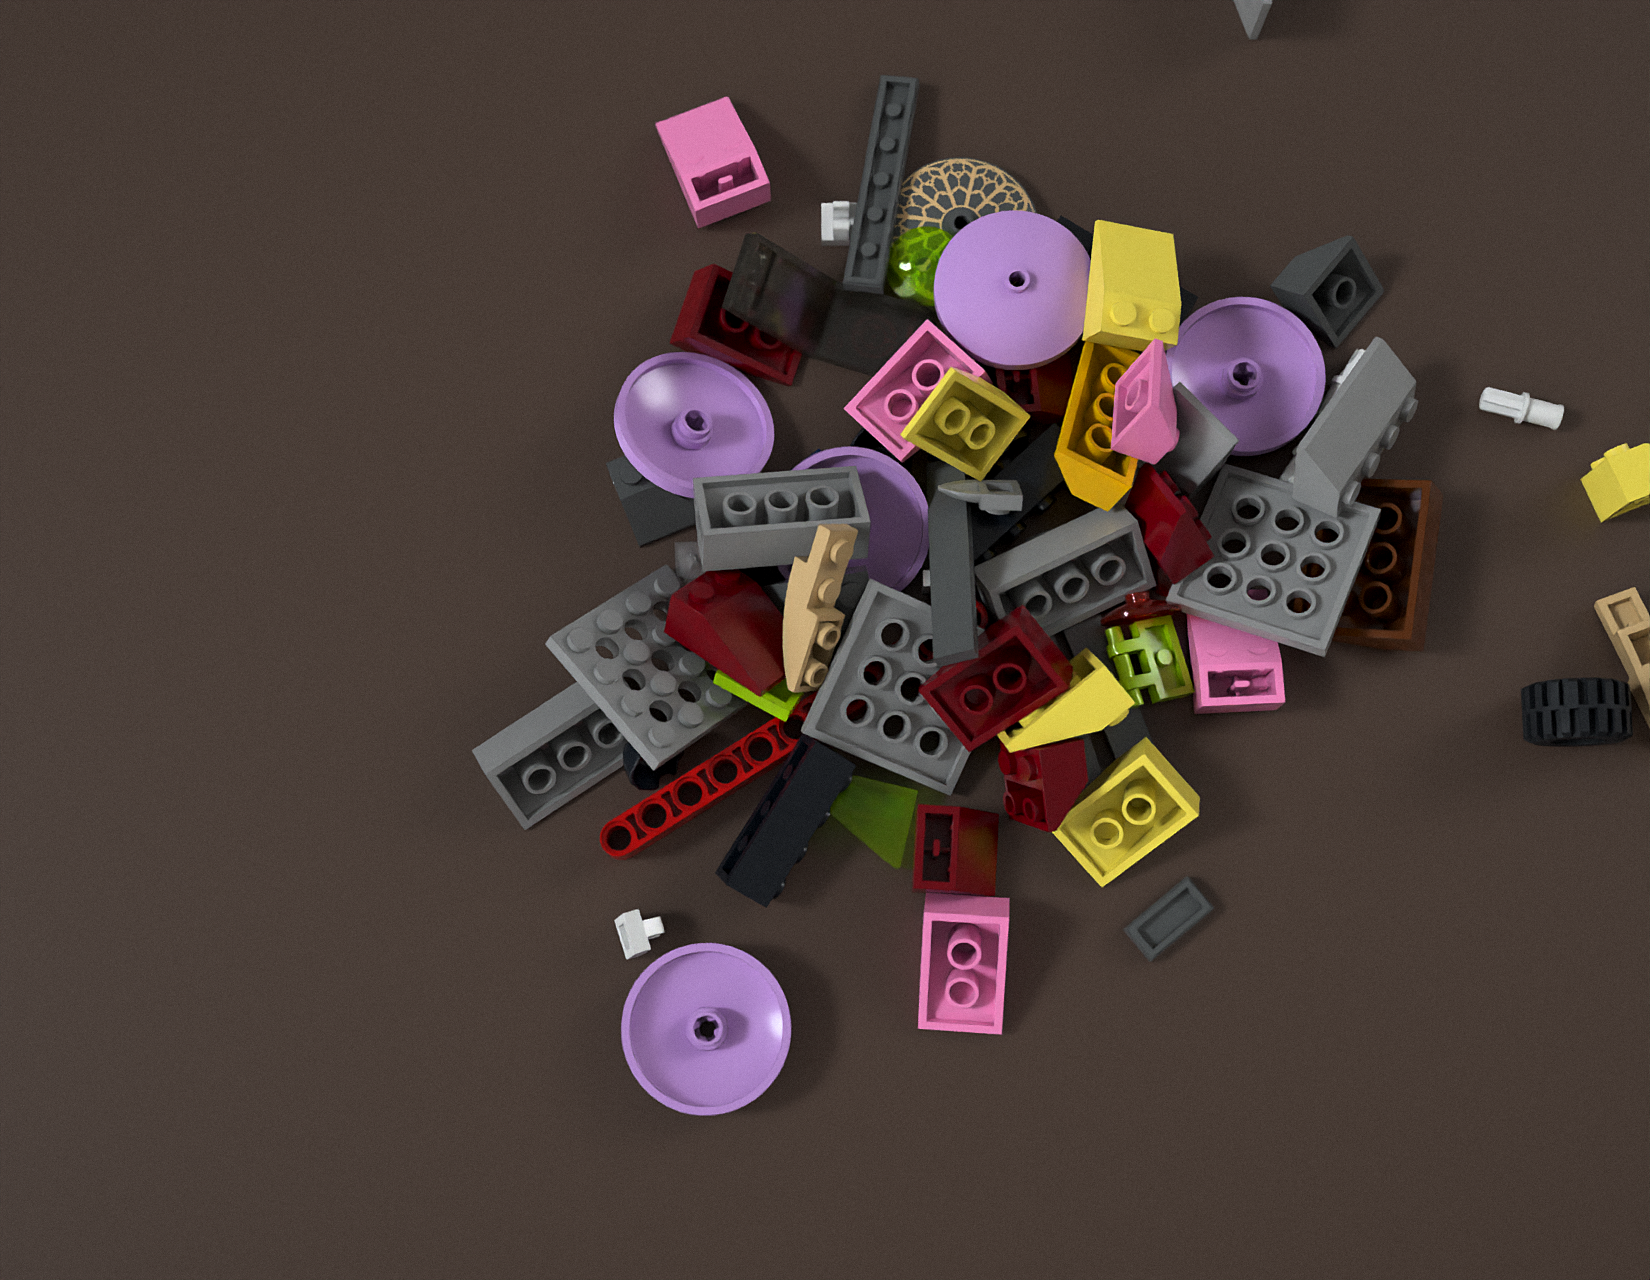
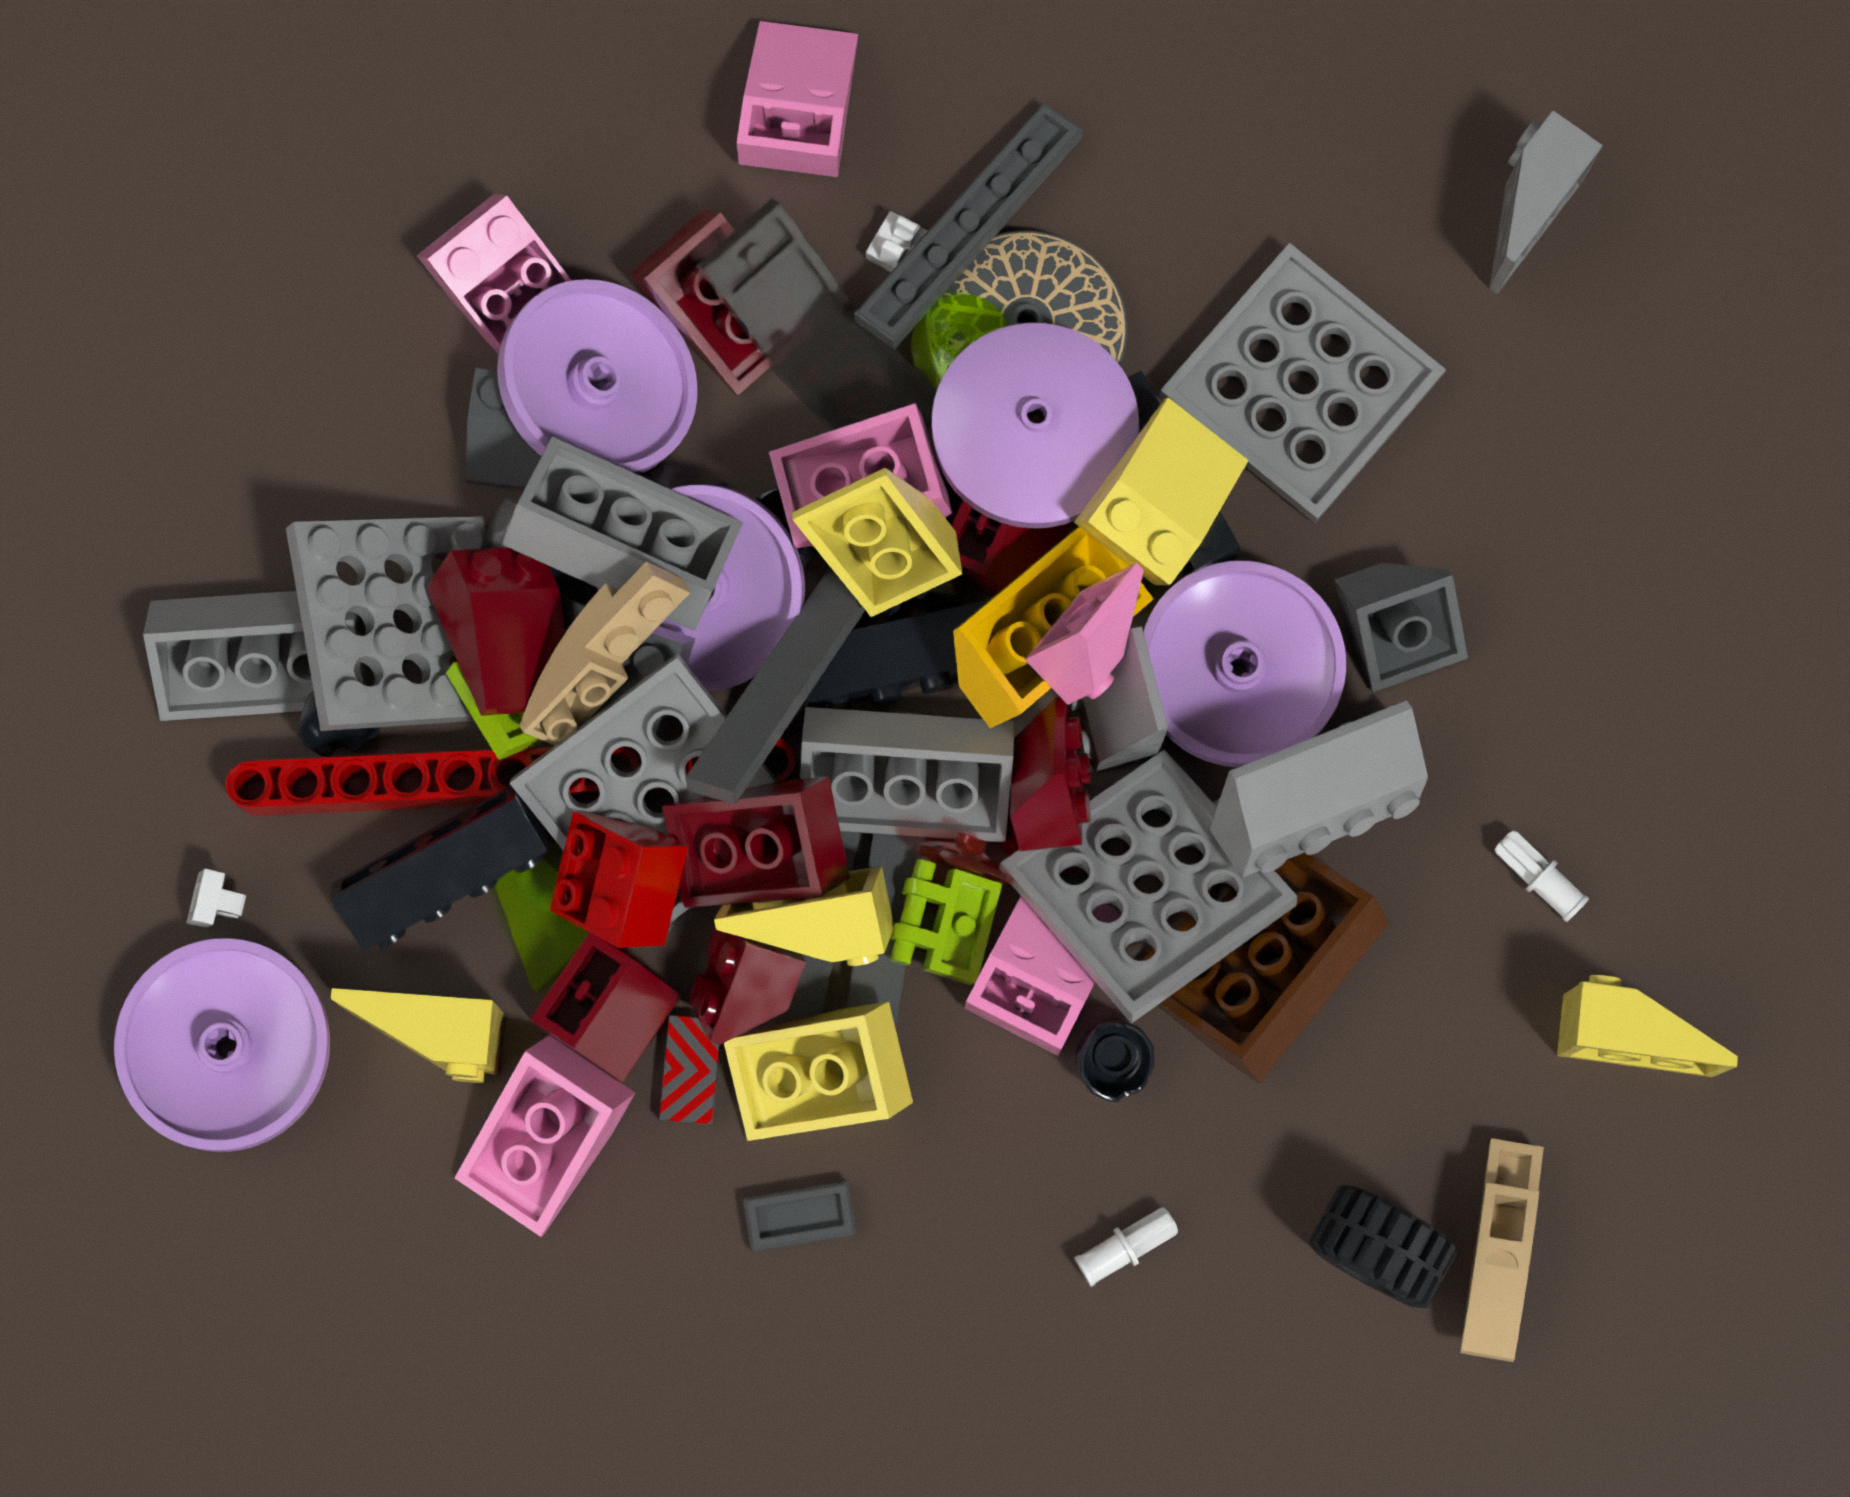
camera: 25 degrees right, 0 degrees up
(574, 390) = (492, 266): none -> bright pink slope
(853, 932) = (447, 1031): none -> light yellow slope
(916, 758) = (618, 880): none -> red slope
(994, 496) = (871, 637): light grey plate -> none
(1035, 863) = (689, 1074): none -> tile
(1194, 115) = (1331, 311): none -> light grey piece
(1318, 690) = (1114, 1059): none -> black hair
(1399, 812) = (1126, 1246): none -> white axle

